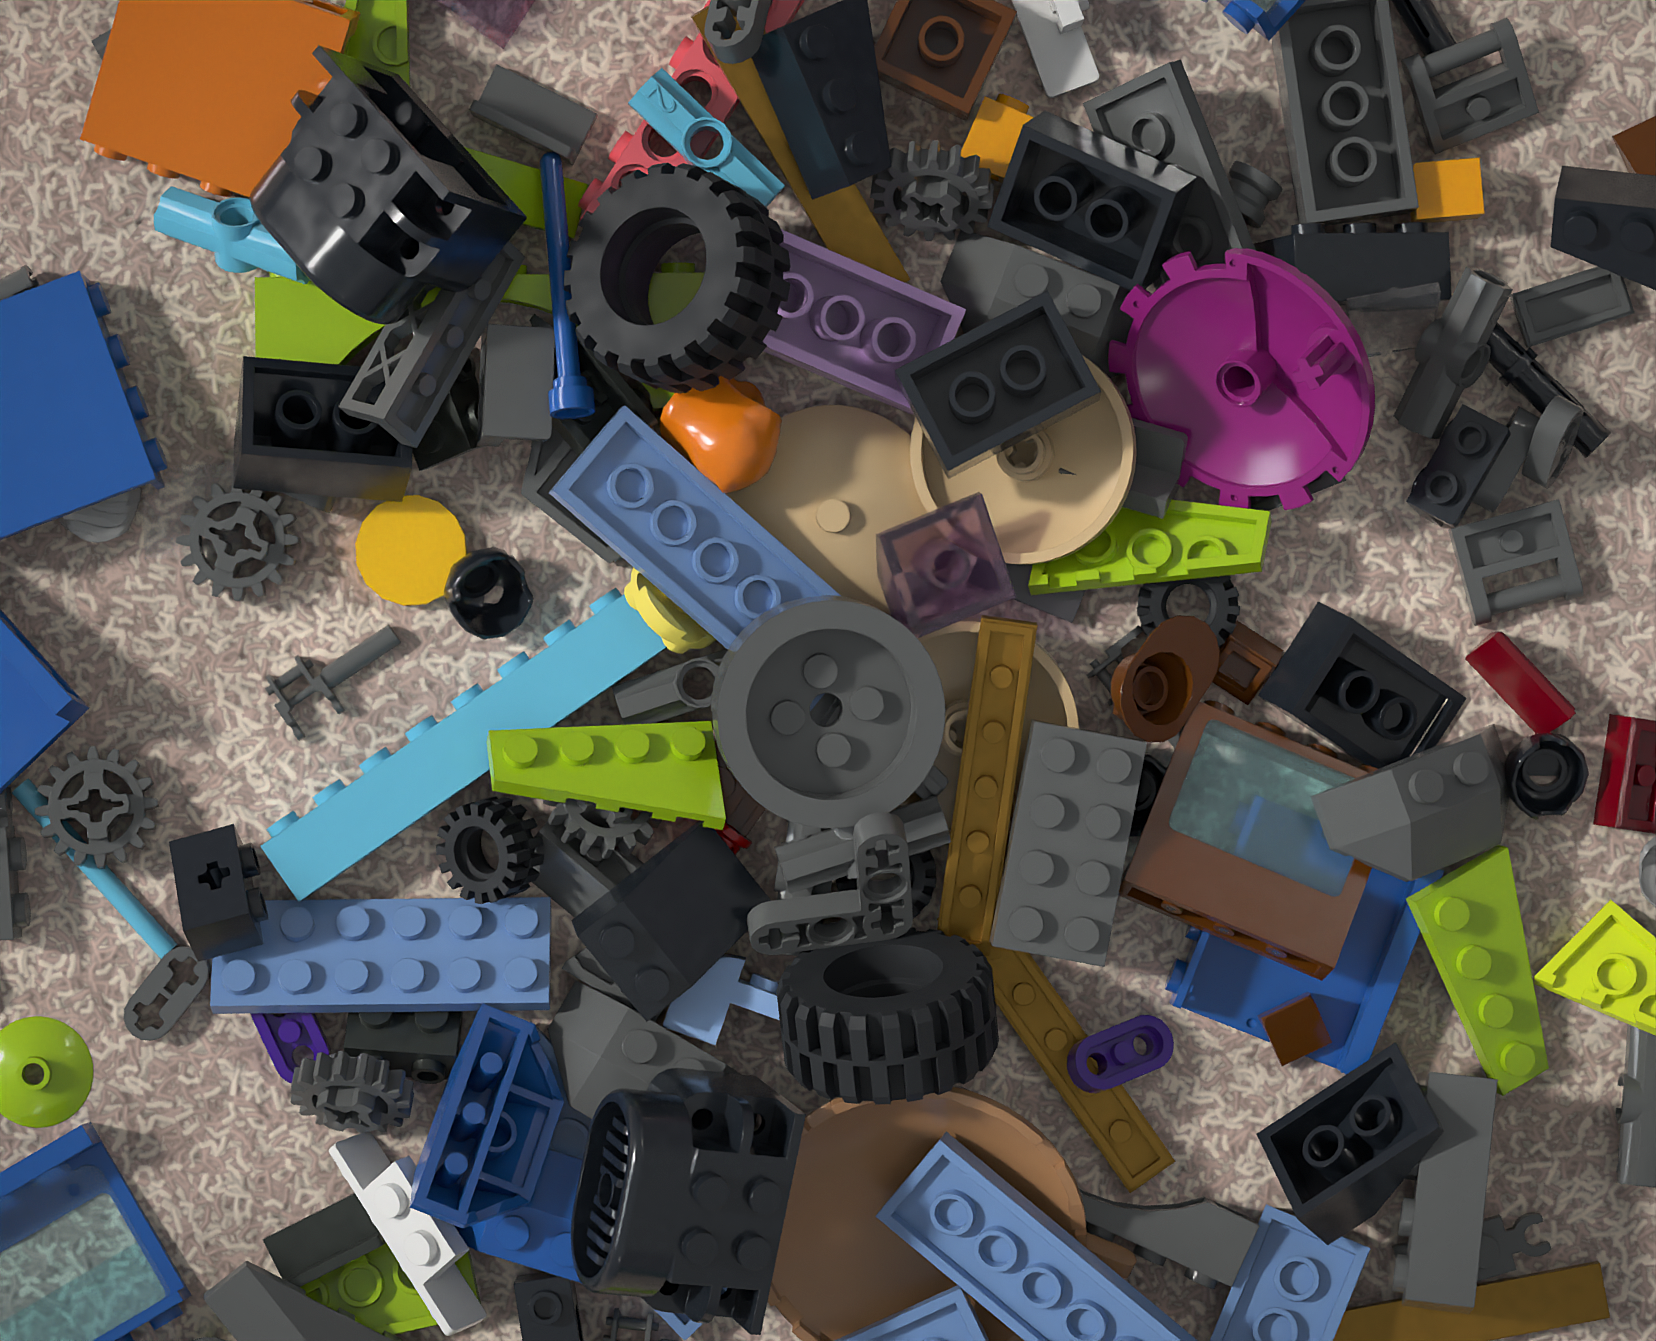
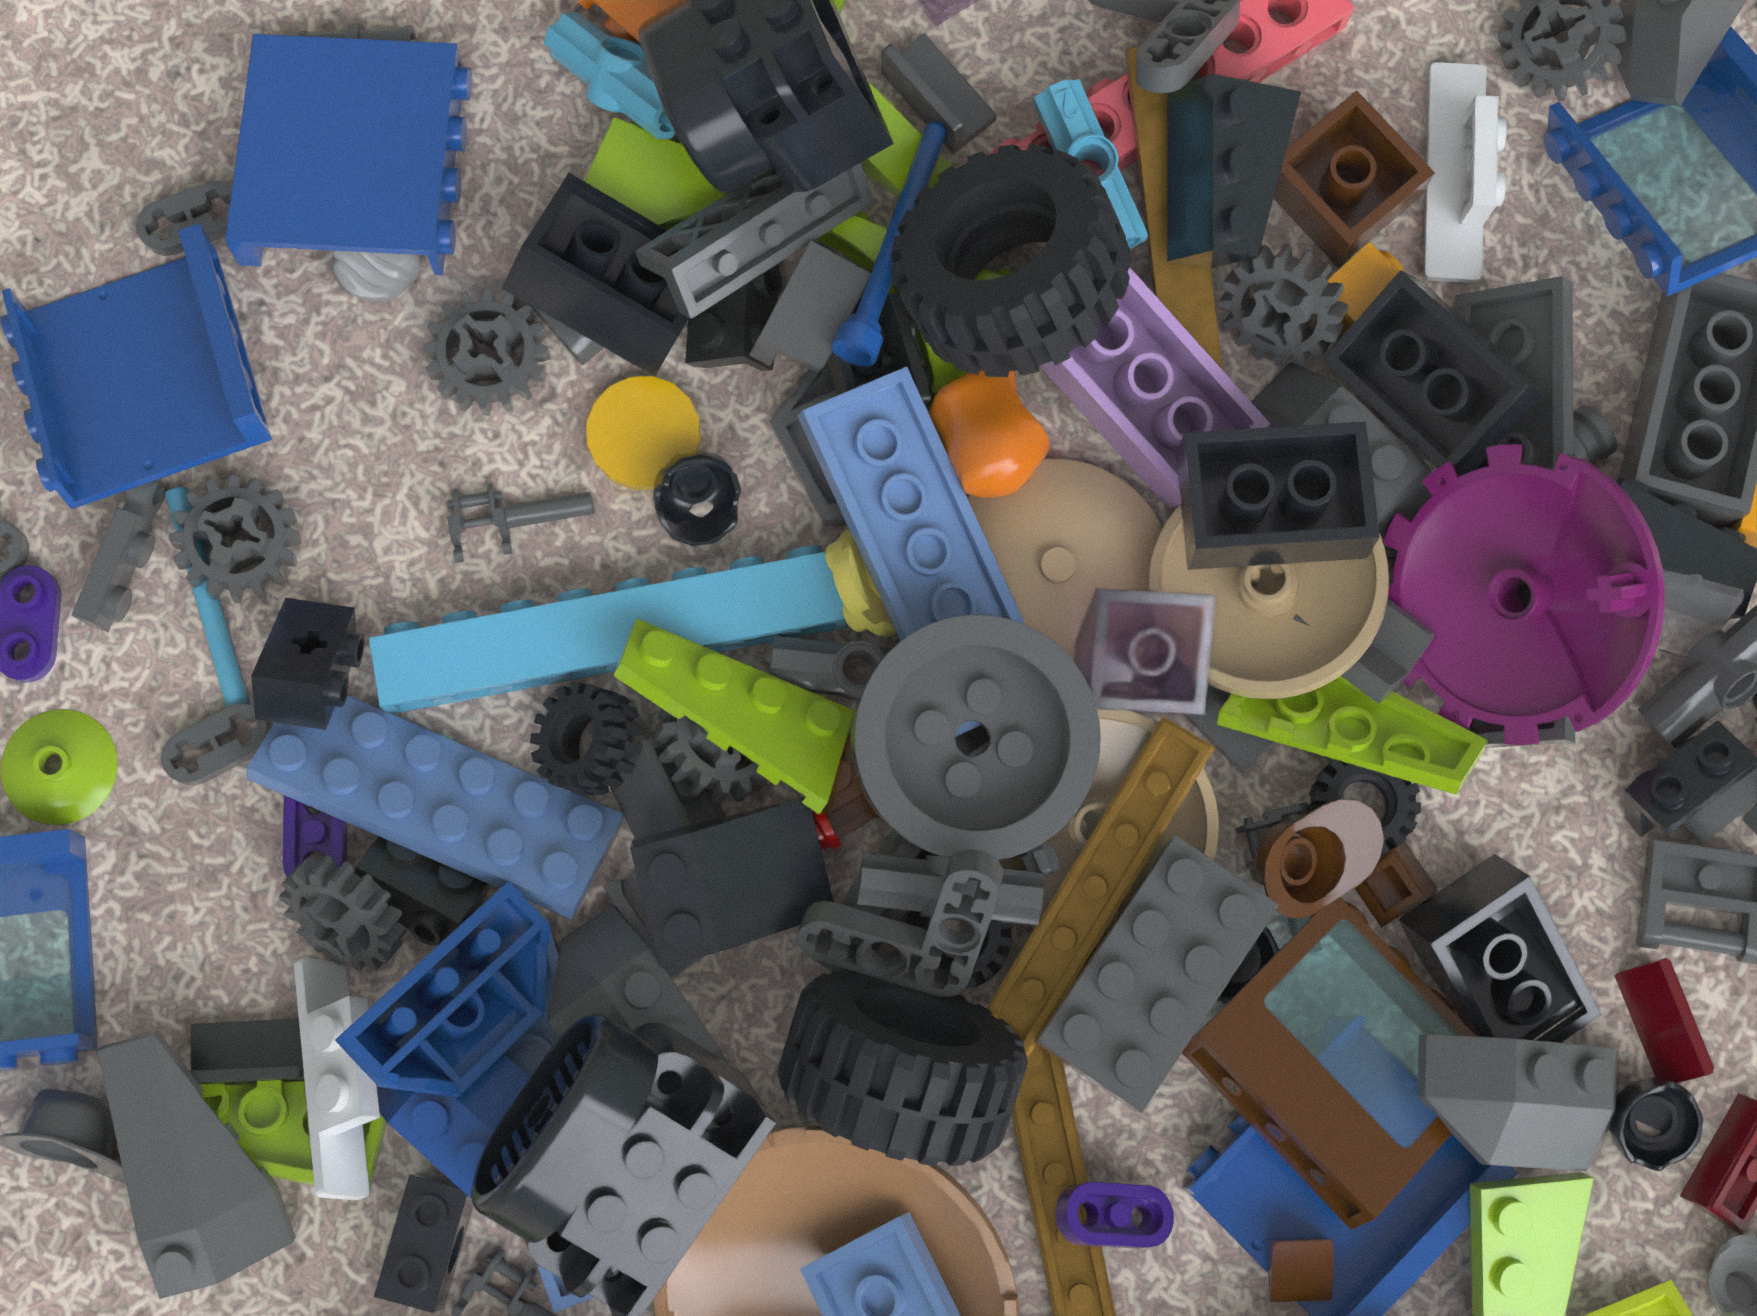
camera: 15 degrees right, 10 degrees down
(705, 1005) = (729, 977): light blue brick -> none

